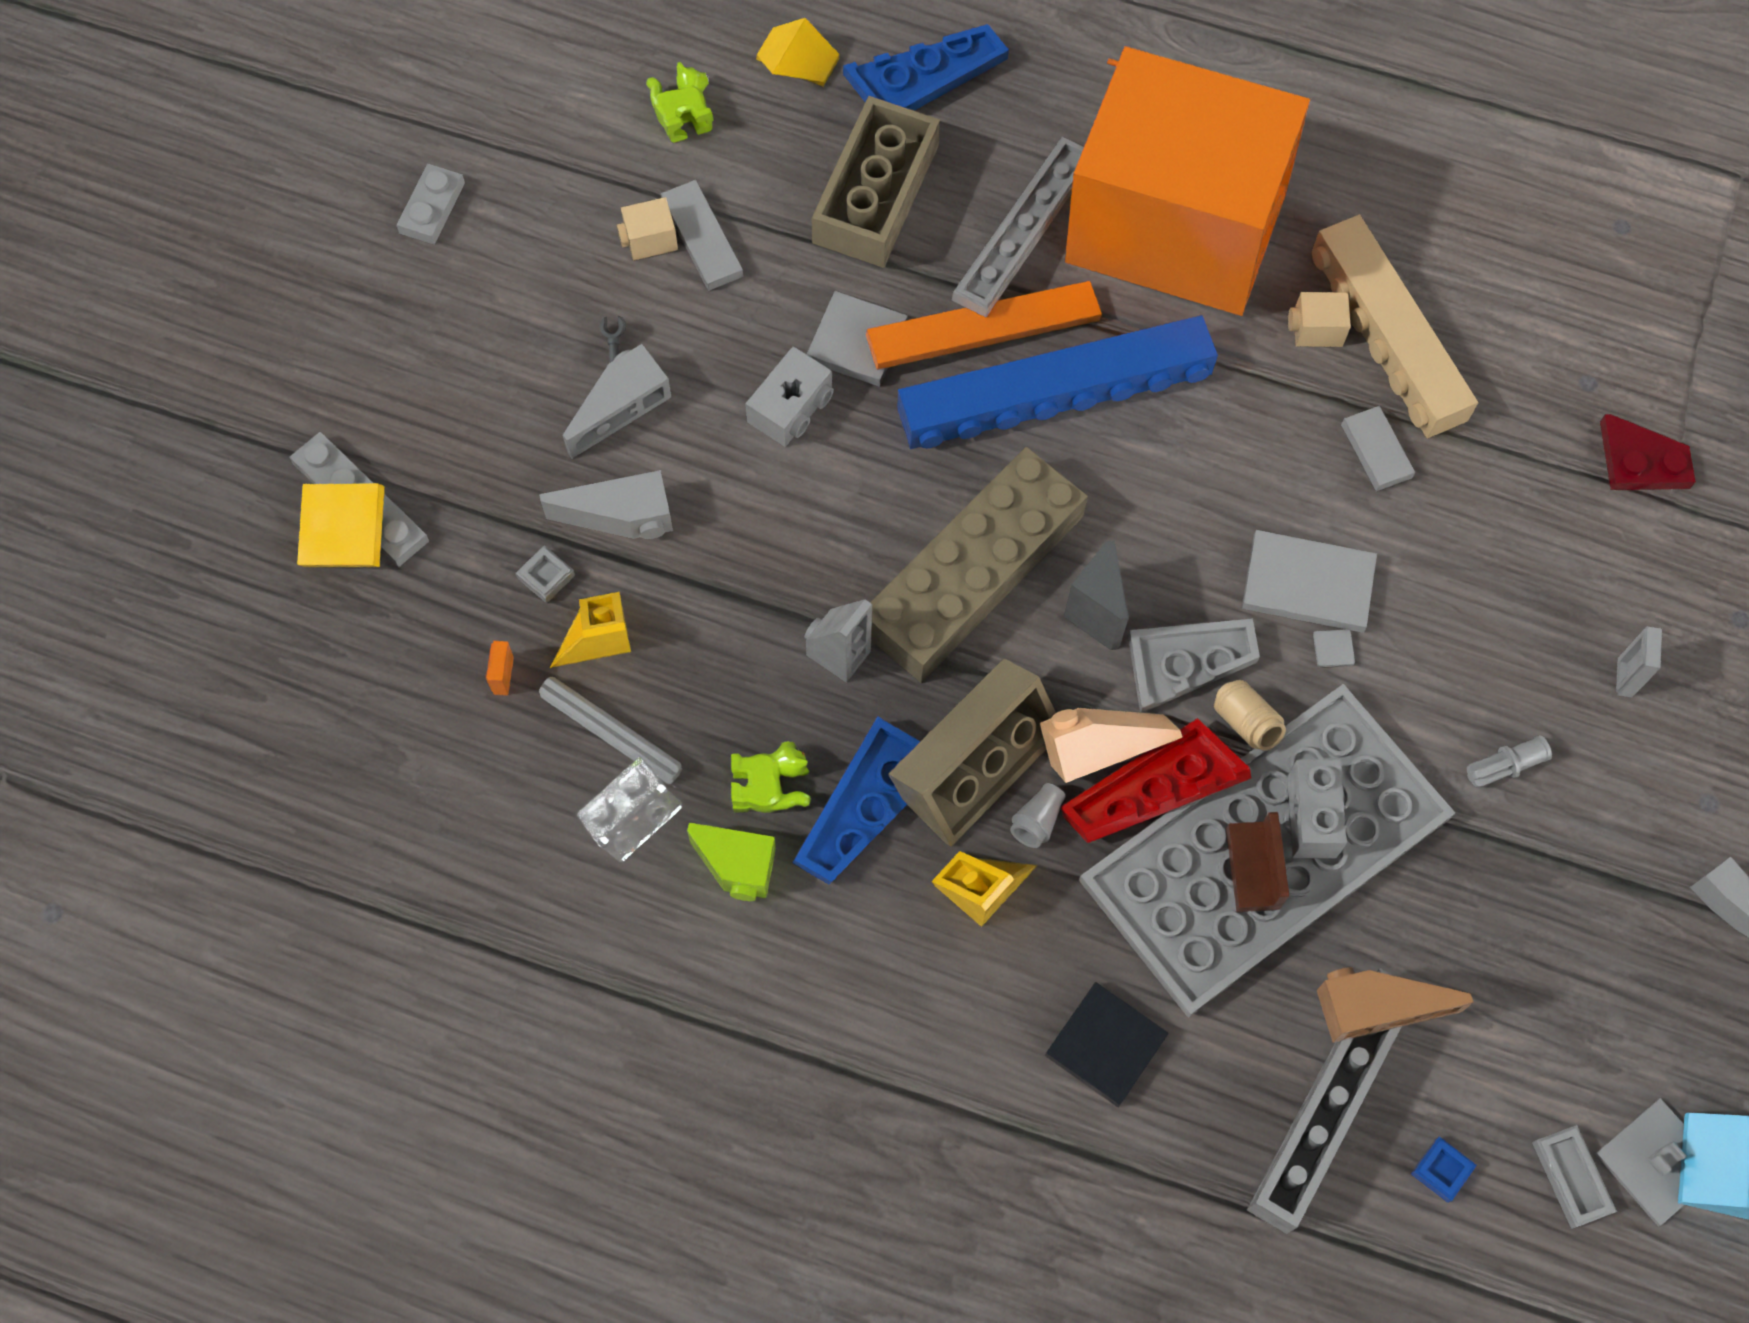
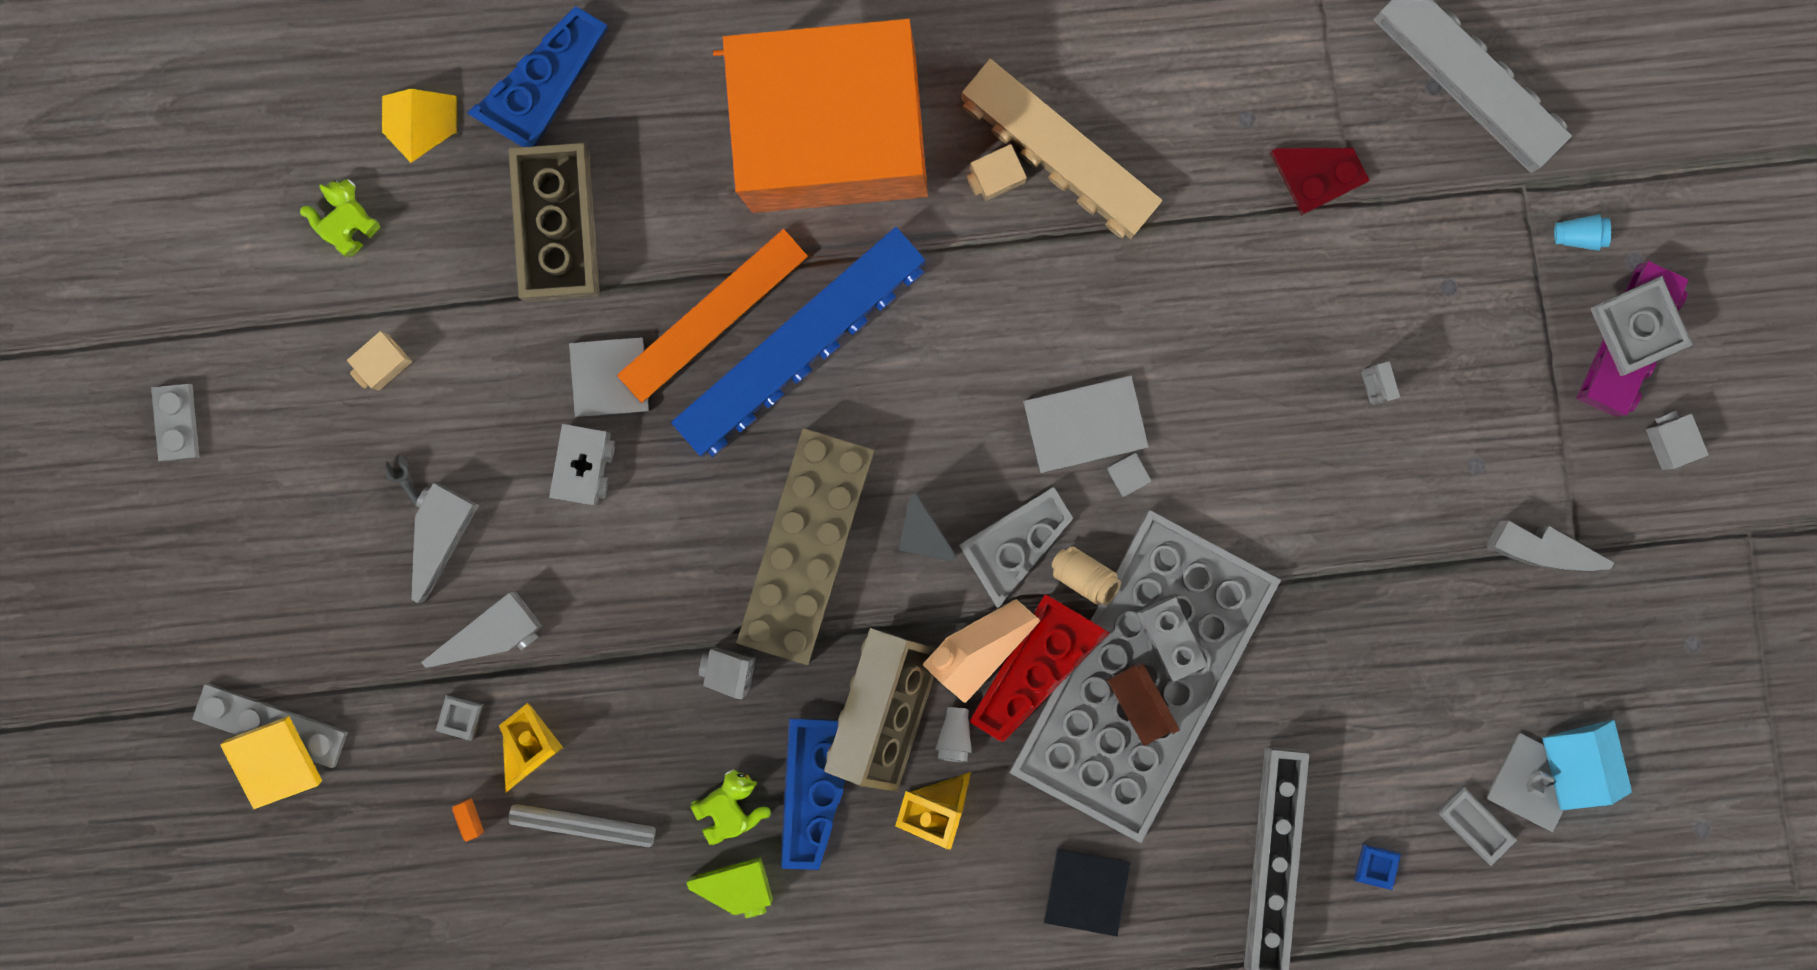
camera: 25 degrees left, 20 degrees up
(629, 810) = (632, 888): clear bracket -> none
(702, 235) = (426, 340): light grey tile -> none
(1019, 231) = (702, 202): light grey tile -> none
(1378, 448) = (1093, 272): light grey tile -> none
(1378, 1002) = (1280, 787): medium nougat slope -> none
(1509, 761) = (1306, 511): light grey axle -> none

